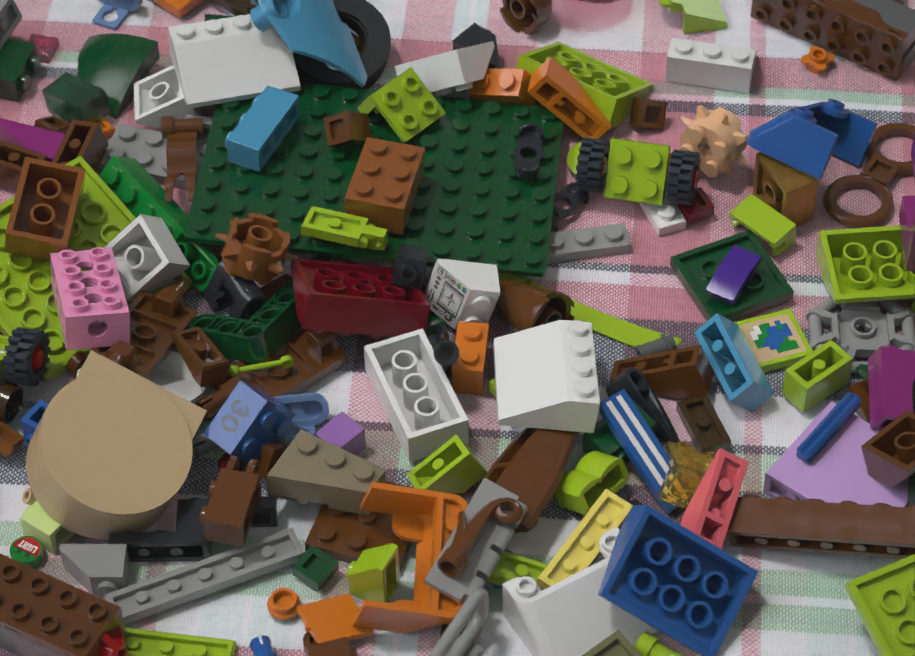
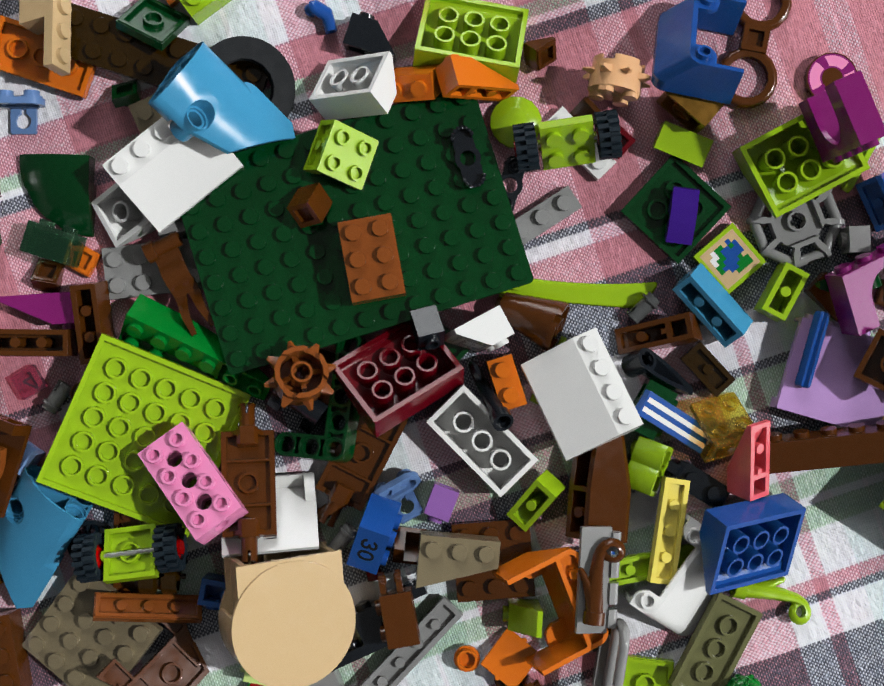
camera: 20 degrees left, 40 degrees up
(44, 209) = (108, 414): dark orange brick -> none
(146, 256) = (208, 404): white slope -> none
(201, 357) = (301, 482): reddish brown slope -> none
(262, 128) = (237, 236): dark azure brick -> none
(285, 361) = (333, 478): lime hinge -> none
(315, 568) = (475, 620): dark green plate -> none
(343, 229) = (357, 320): lime hinge -> none
(442, 19) = (323, 12): none -> blue arm

